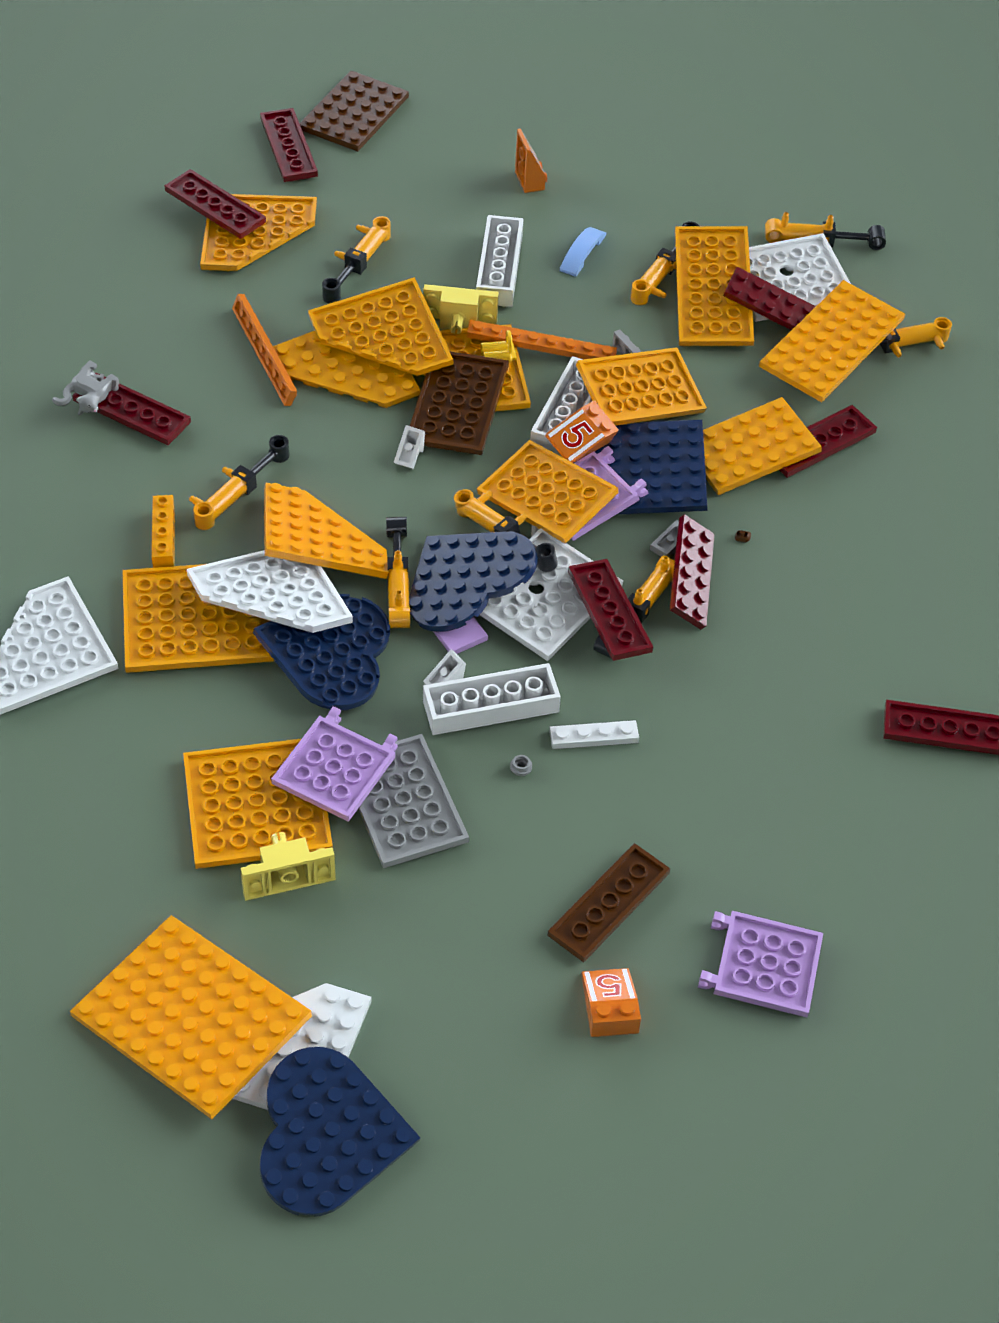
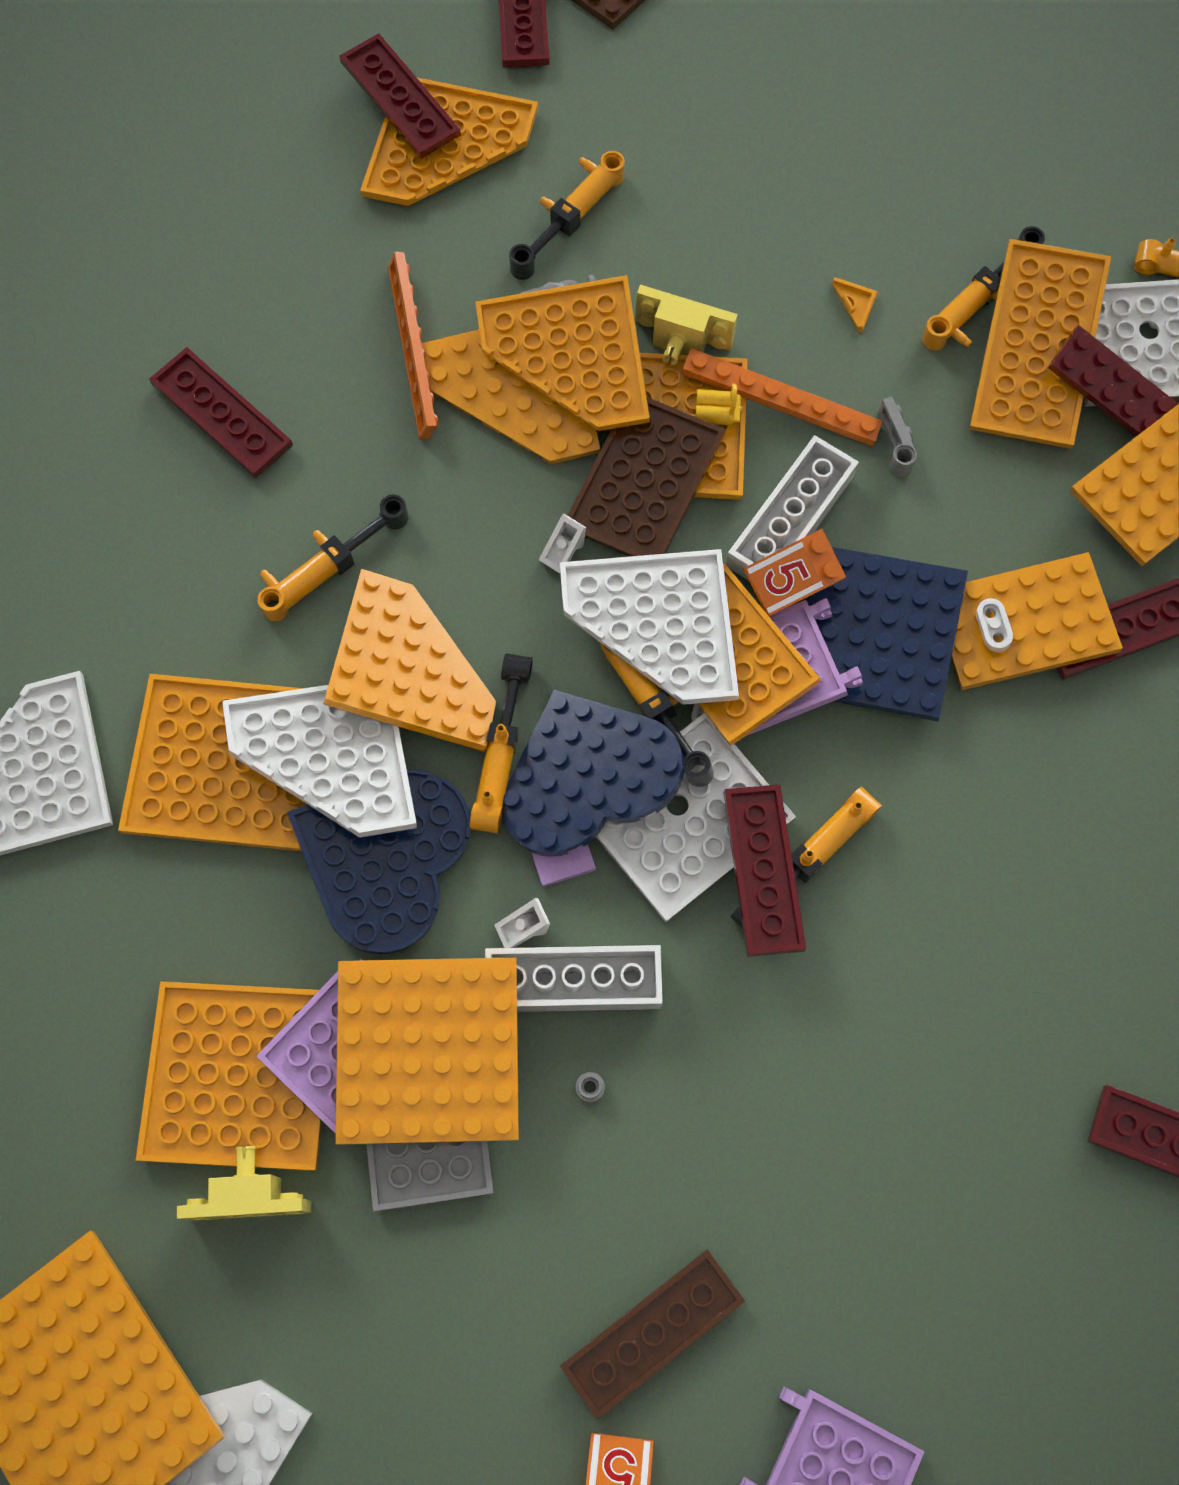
camera: 15 degrees right, 20 degrees up
(90, 386) = (166, 370): light grey animal -> none
(163, 531) = (214, 624): light orange brick -> none
(398, 751) = (427, 1051): none -> light orange plate
(492, 472) = (660, 617): none -> white plate
(500, 257) = (757, 249): white brick -> none
(527, 166) = (834, 96): orange slope -> none
(577, 282) = (856, 300): none -> light orange tile
(580, 250) = (874, 245): light blue slope -> none
(594, 734) = (698, 1055): white plate -> none
(641, 386) = (896, 501): light orange plate -> none
(666, 542) = (881, 754): light grey hinge -> none
(692, 572) = (892, 821): plate -> none
(732, 449) = (994, 627): none -> white plate
(742, 536) = (978, 766): reddish brown rock -> none

